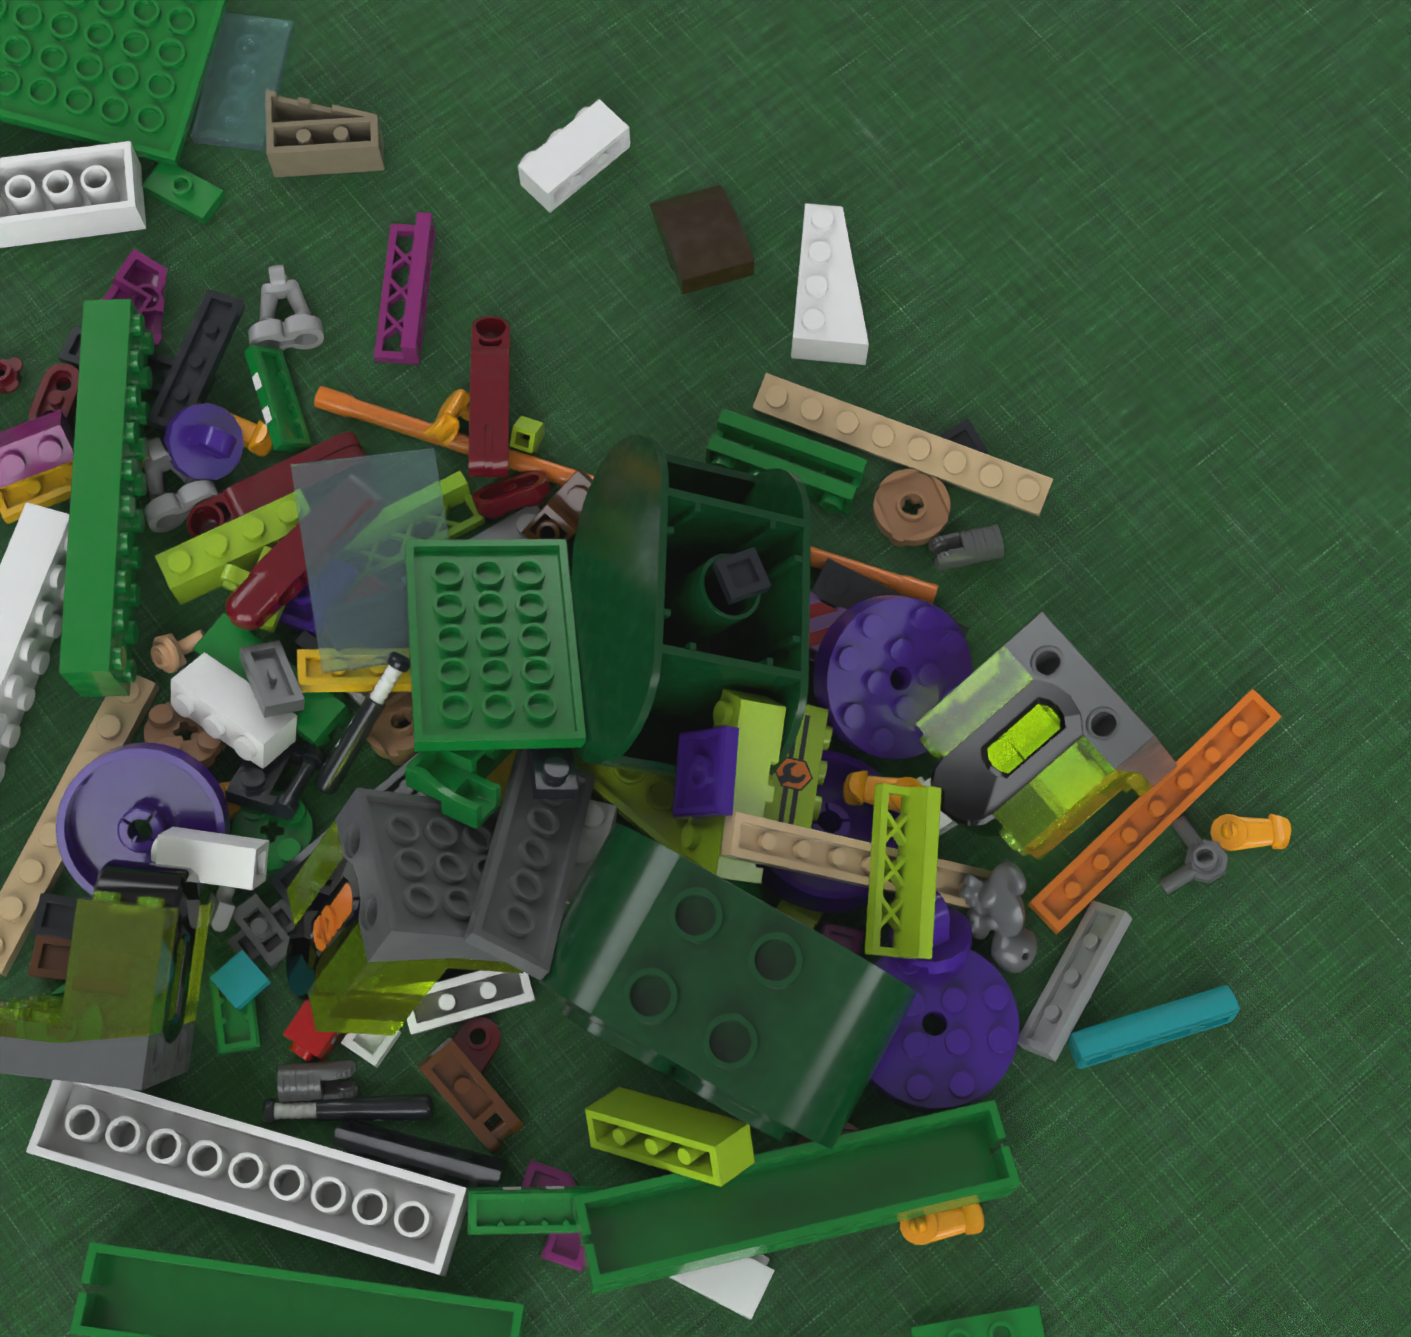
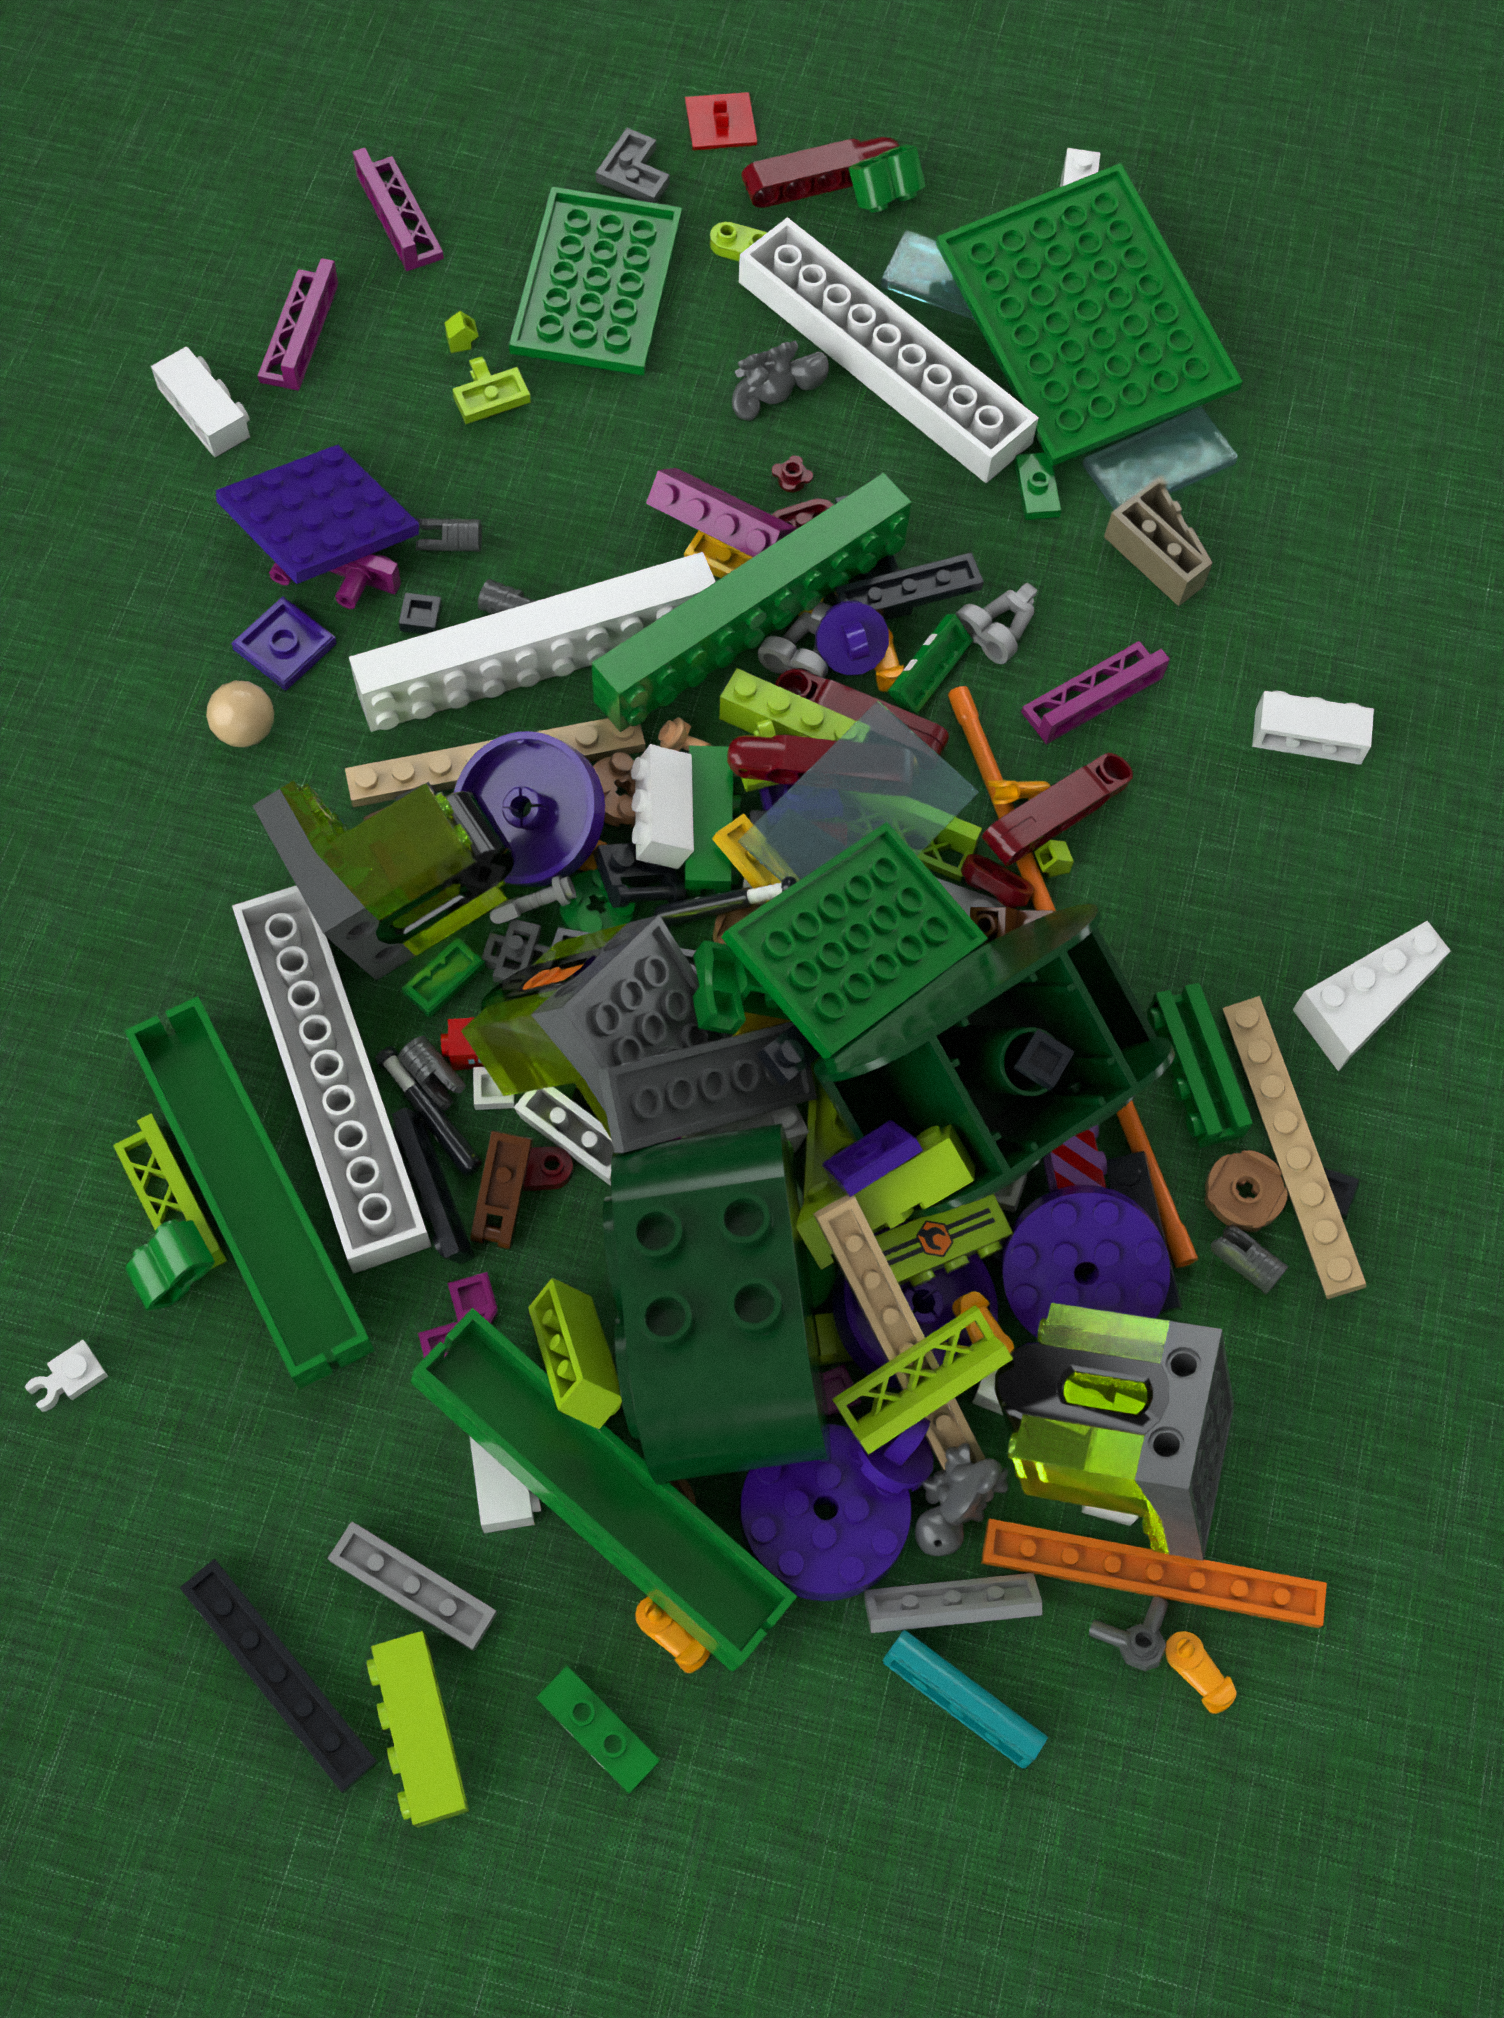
camera: 50 degrees right, 5 degrees down
(144, 284) = (932, 515): magenta slope -> none
(214, 856) = (540, 870): white brick -> none
(240, 980) = (466, 961): teal tile -> none
(271, 679) = (706, 812): dark grey plate -> none
(523, 1209) = (438, 1283): green plate -> none
(703, 239) = (1329, 870): dark brown slope -> none

